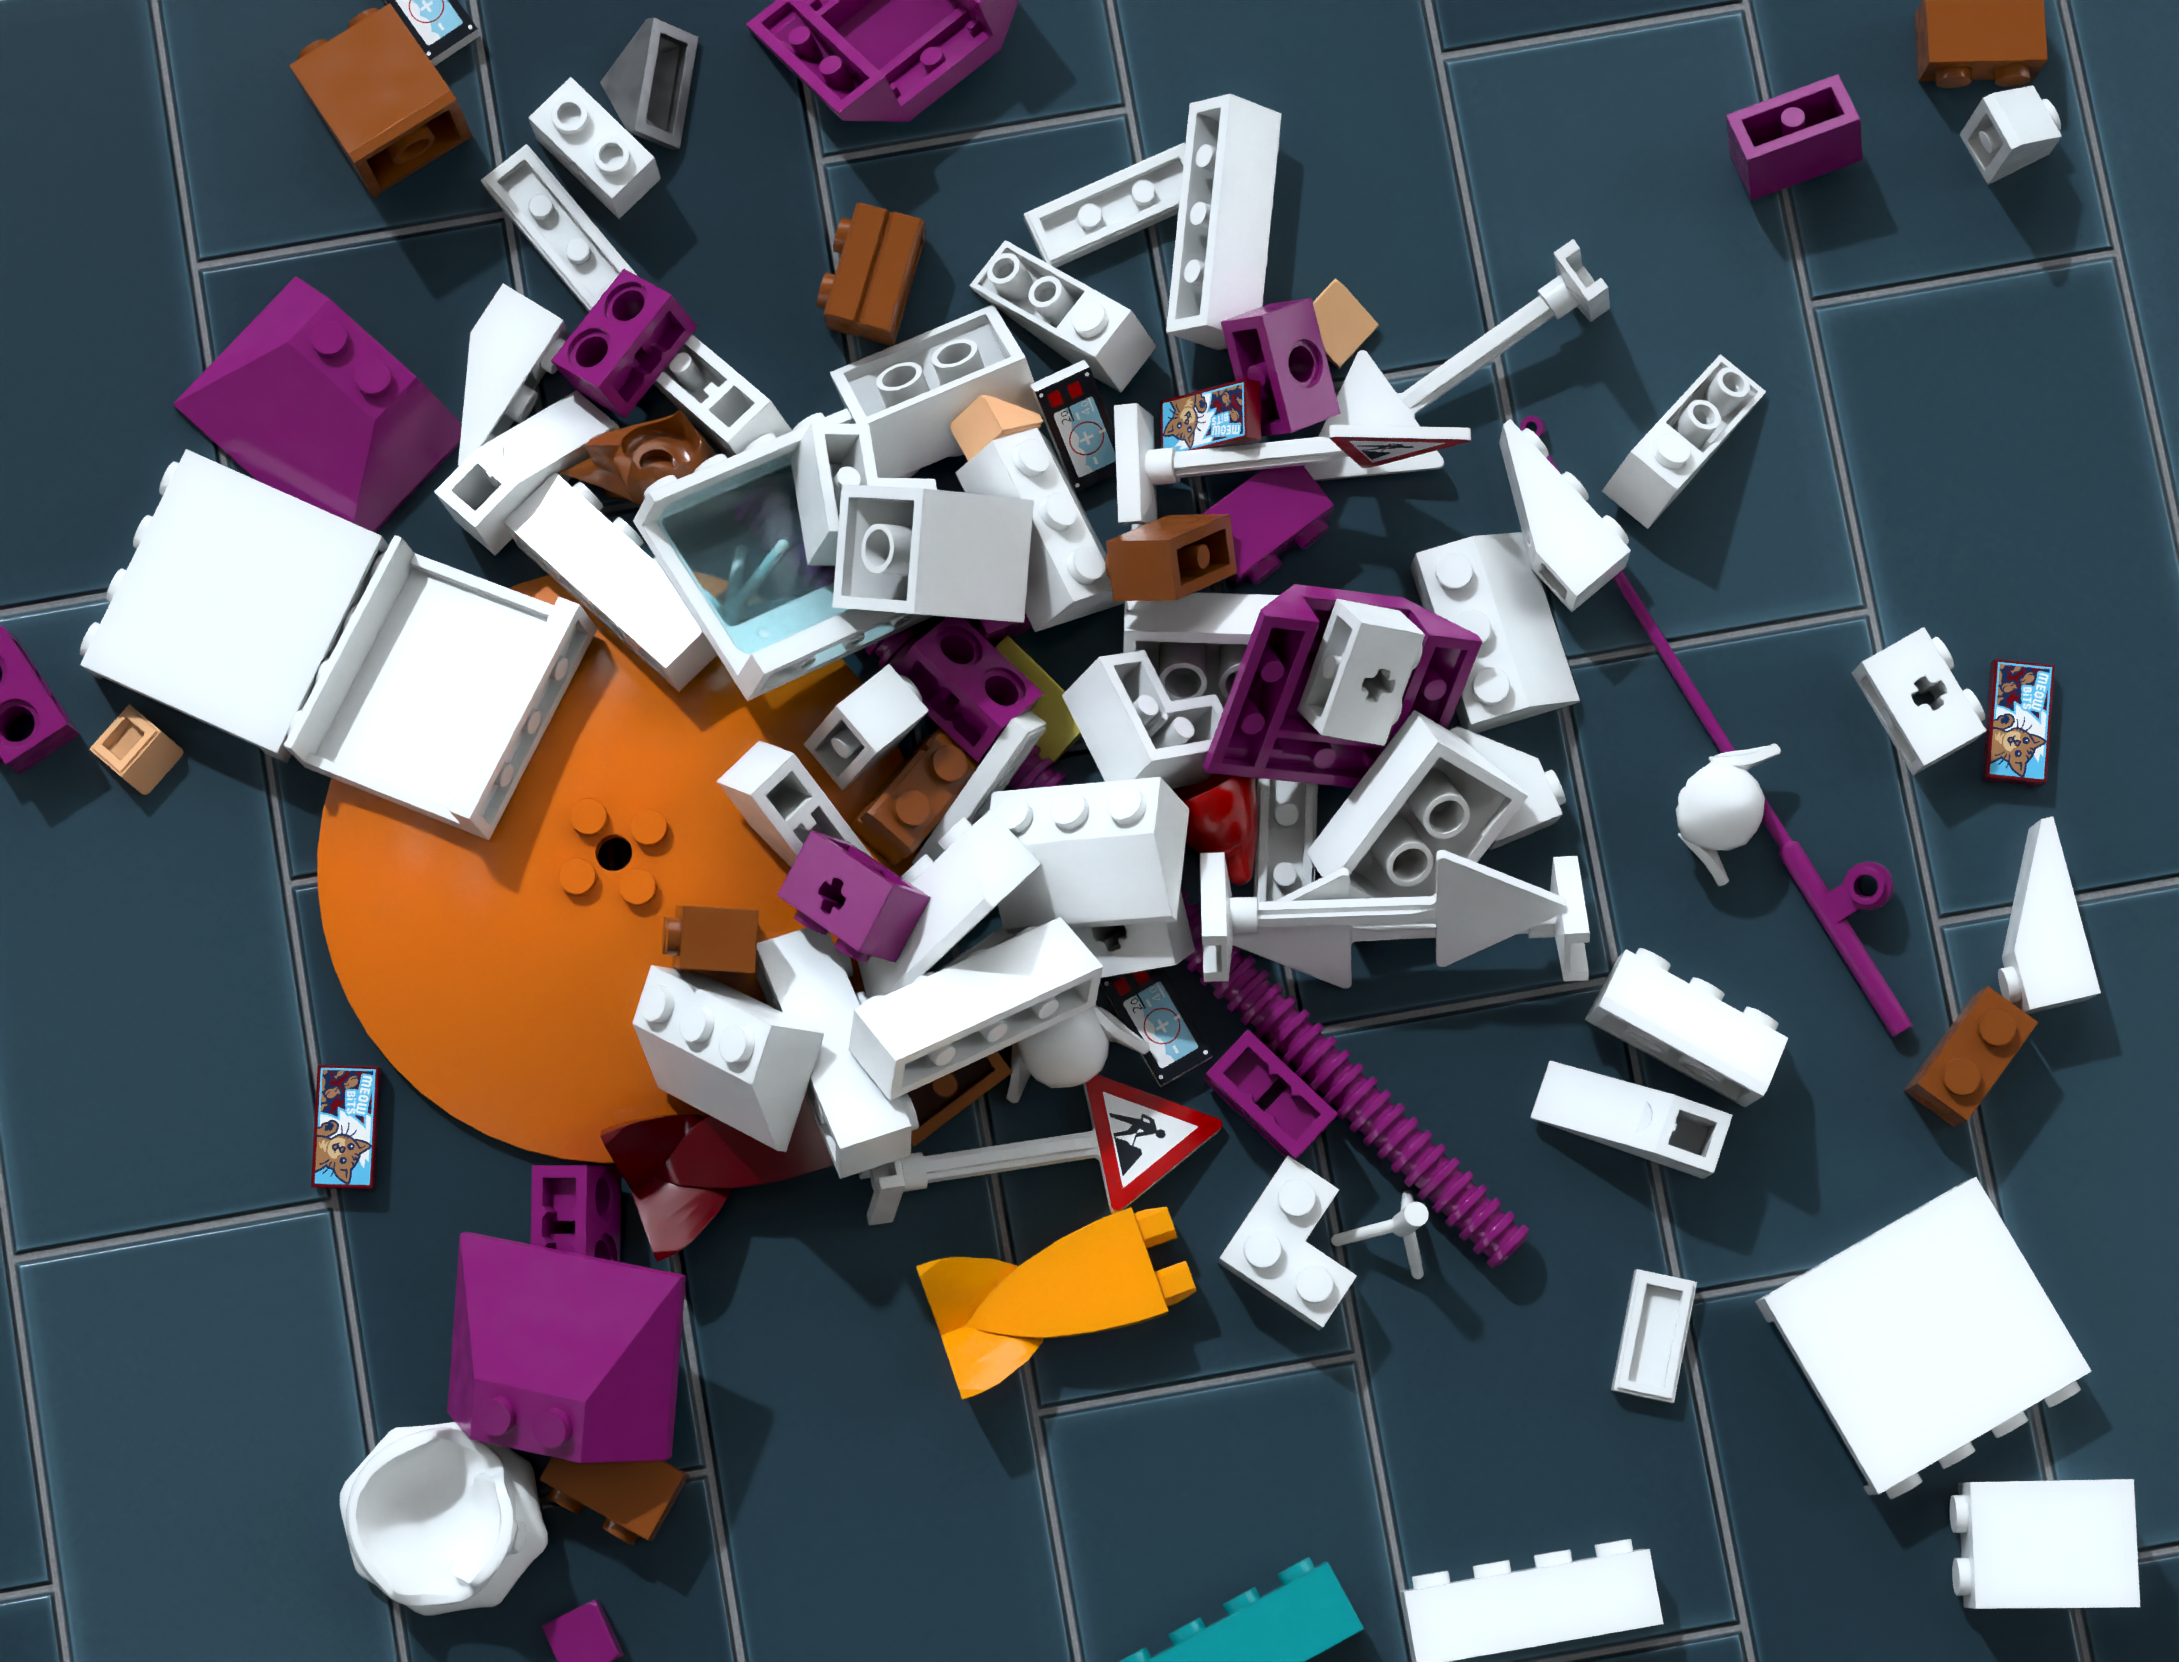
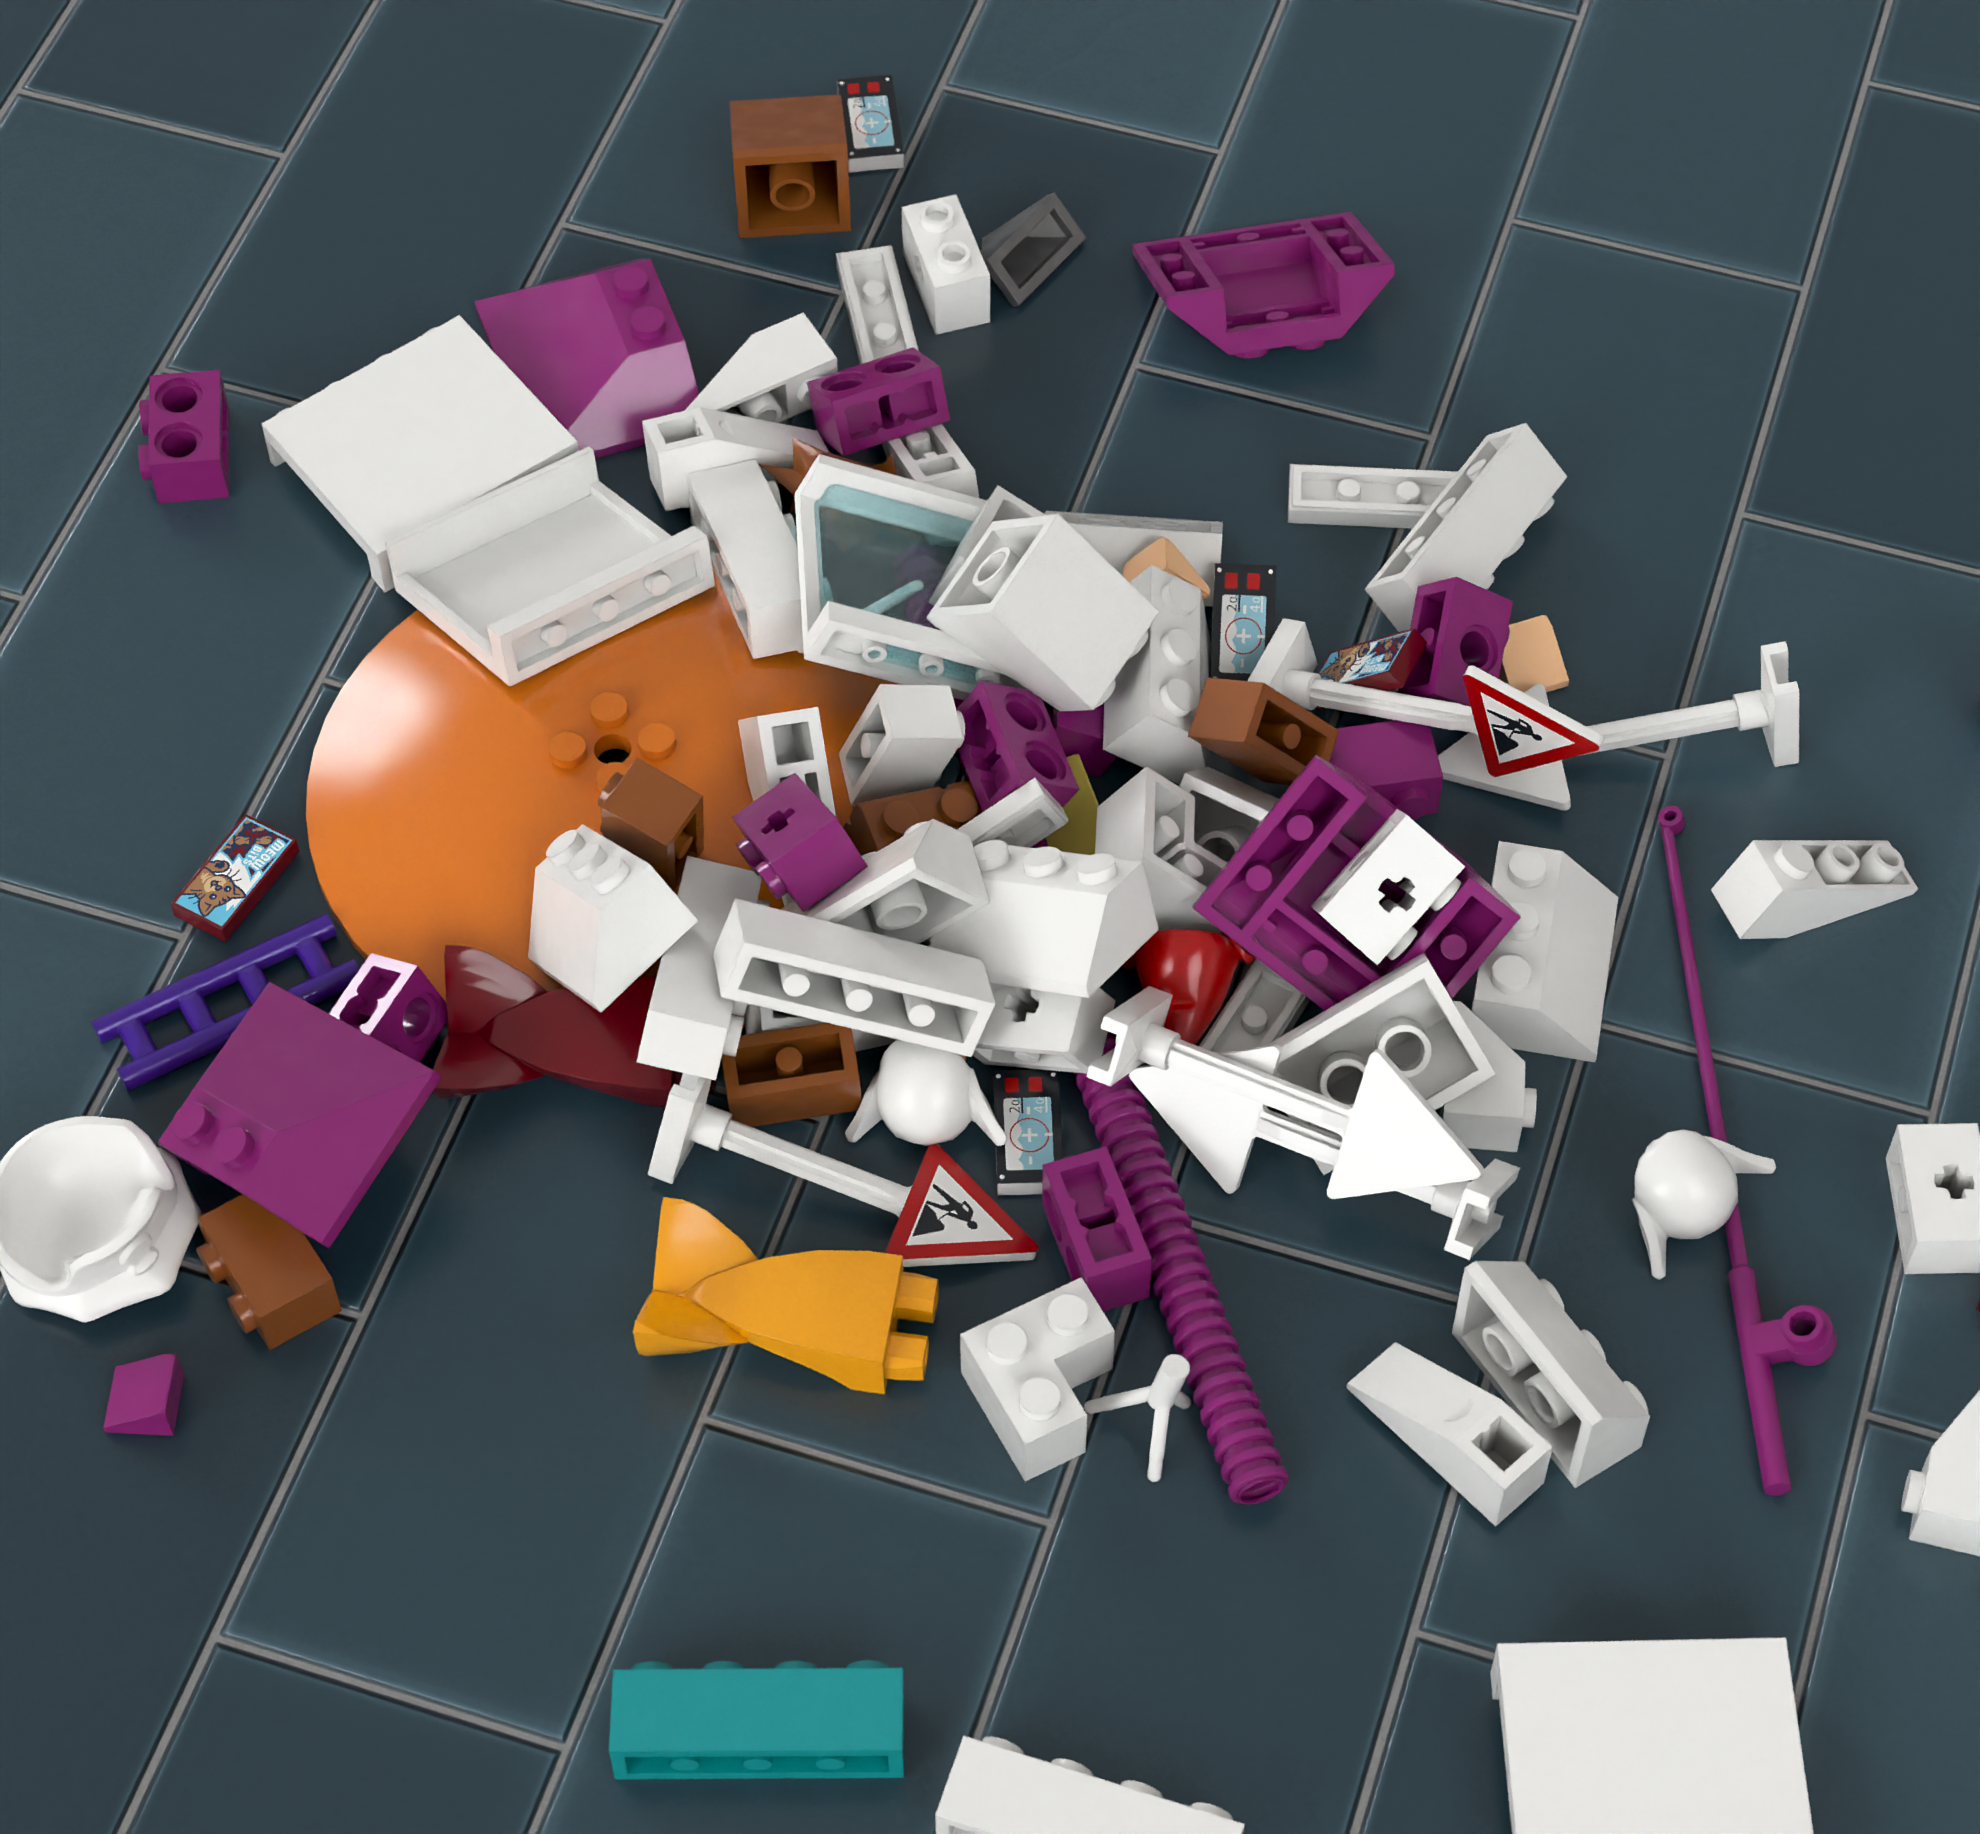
camera: 30 degrees right, 25 degrees down
(137, 750) = (267, 526): light nougat slope -> none
(380, 1262) = (190, 992): none -> dark purple bar
(873, 273) = (1129, 448): dark orange brick -> none
(1066, 314) = (1277, 533): white slope -> none
(1562, 533) = (1656, 906): white slope -> none
(1654, 1336) = (1364, 1648): white tile -> none
(1971, 1056) = (1837, 1534): dark orange brick -> none

